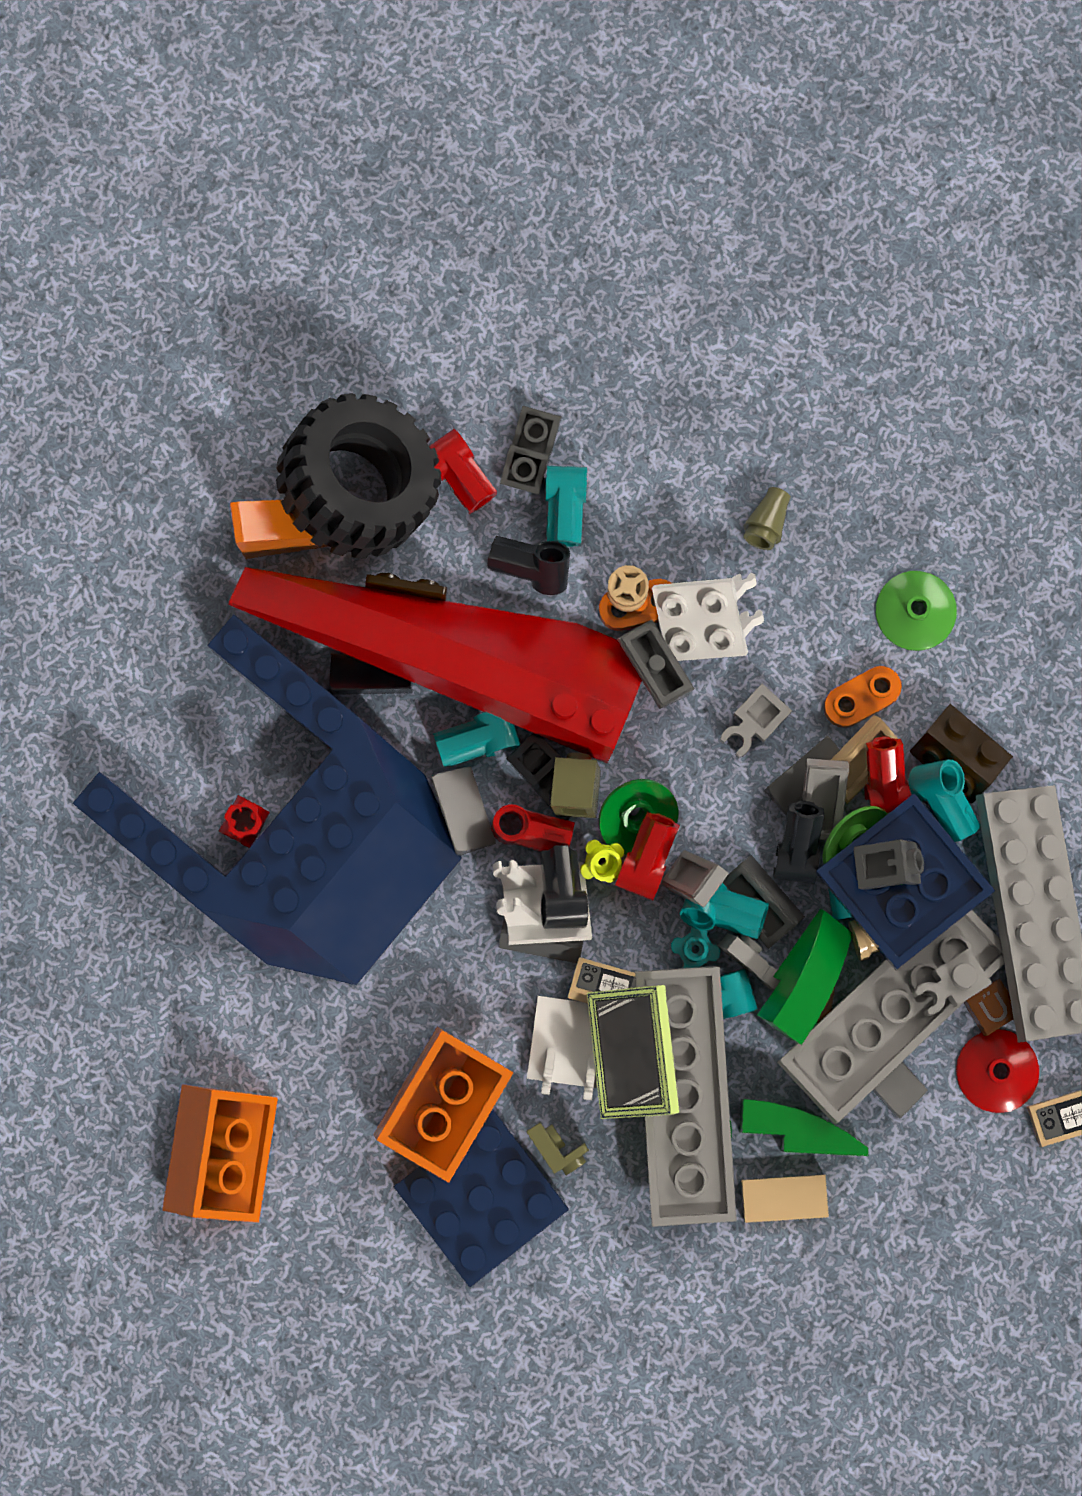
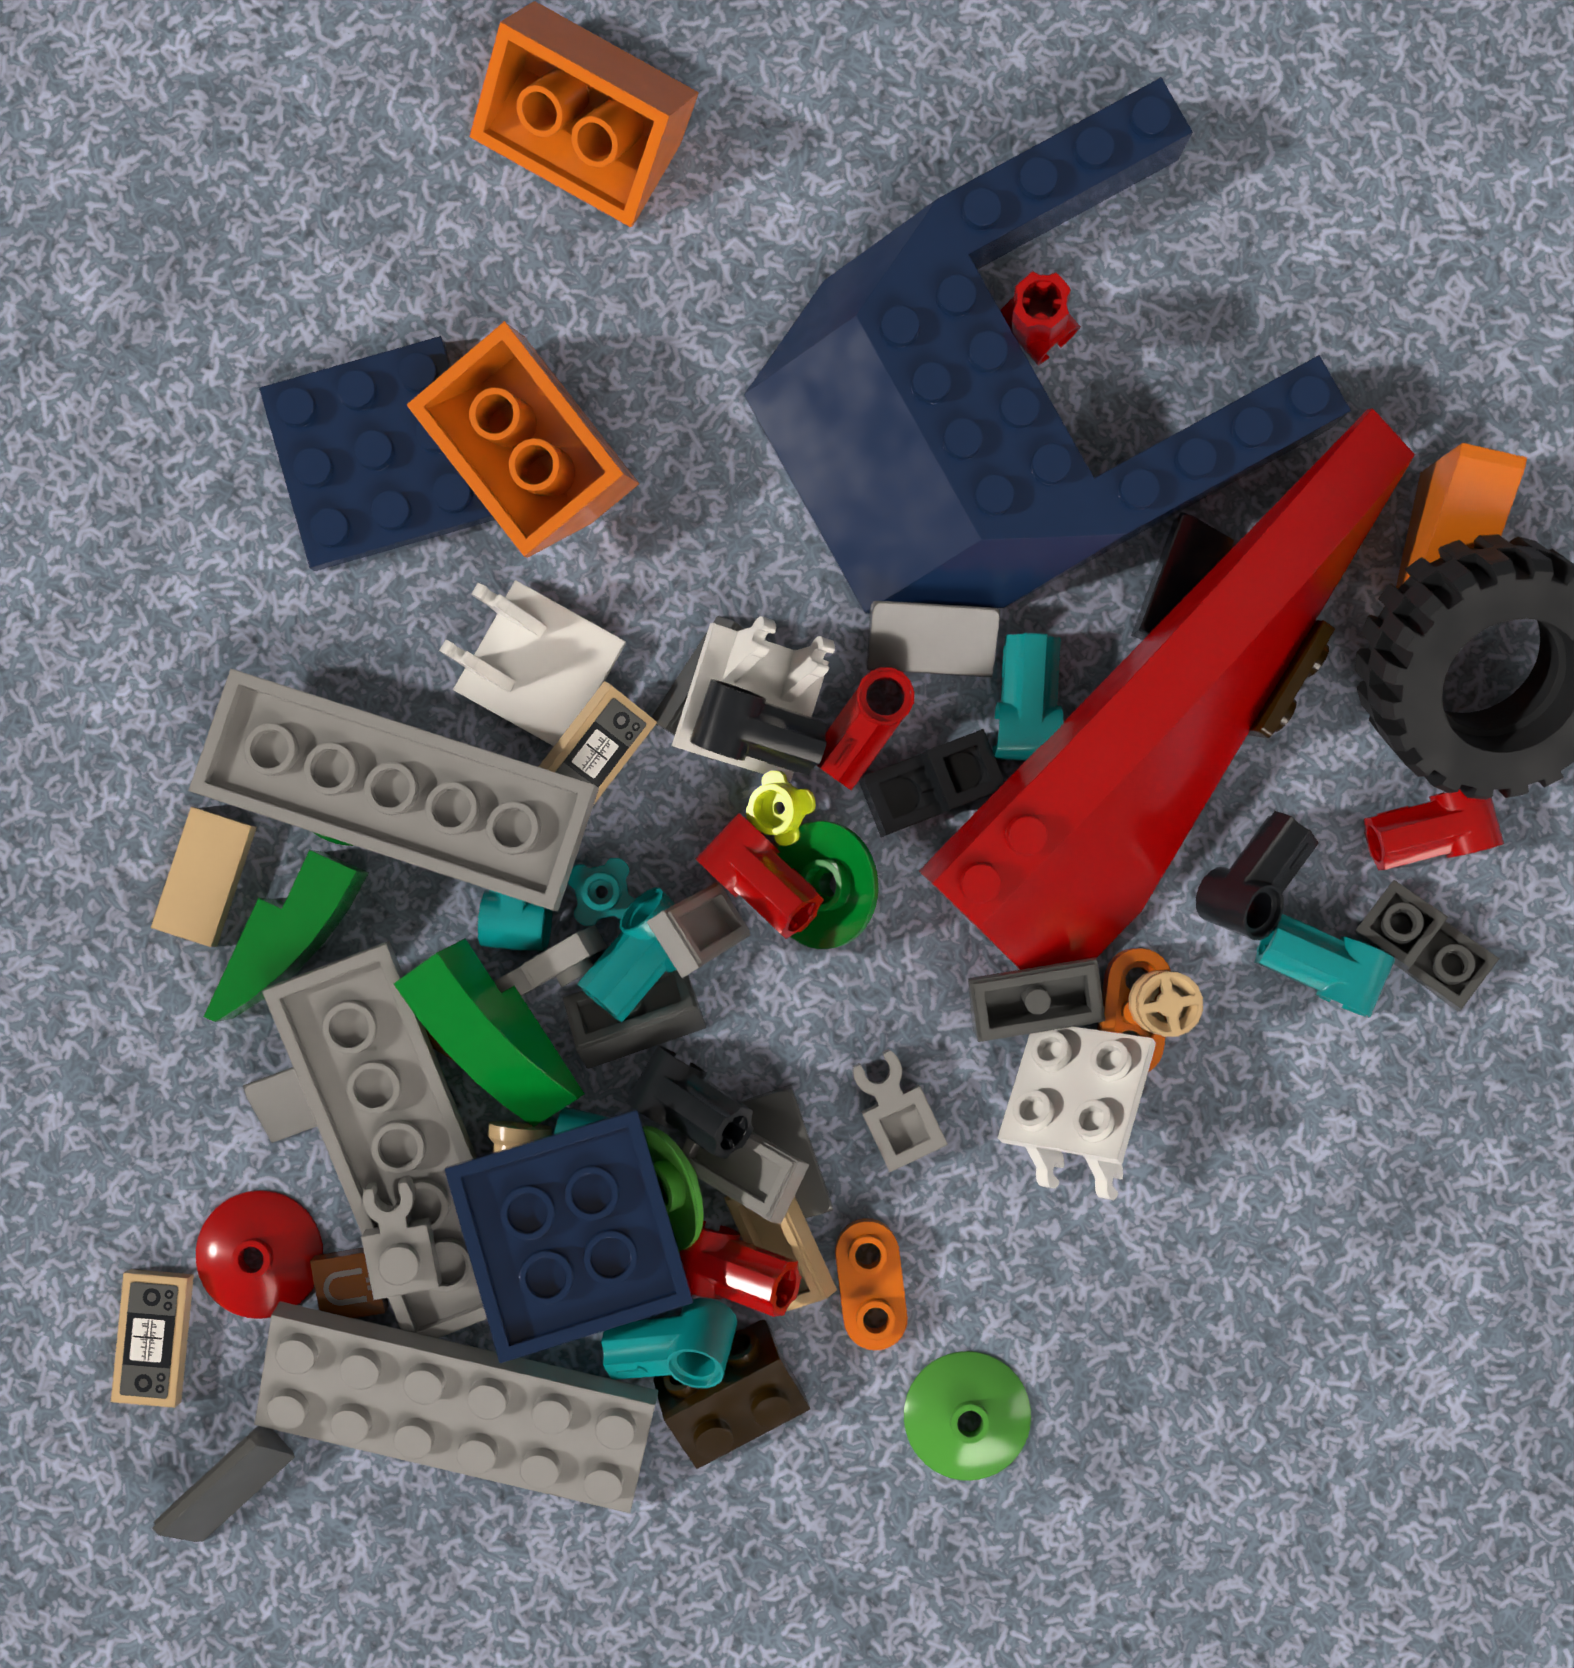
camera: 105 degrees right, 5 degrees up
(549, 1145) = (408, 571): olive bracket -> none
(576, 786) = (903, 811): olive brick -> none
(633, 1052) = (480, 736): tile -> none
(767, 521) = (1184, 1249): olive cone -> none
(888, 864) = (599, 1220): dark grey bracket -> none

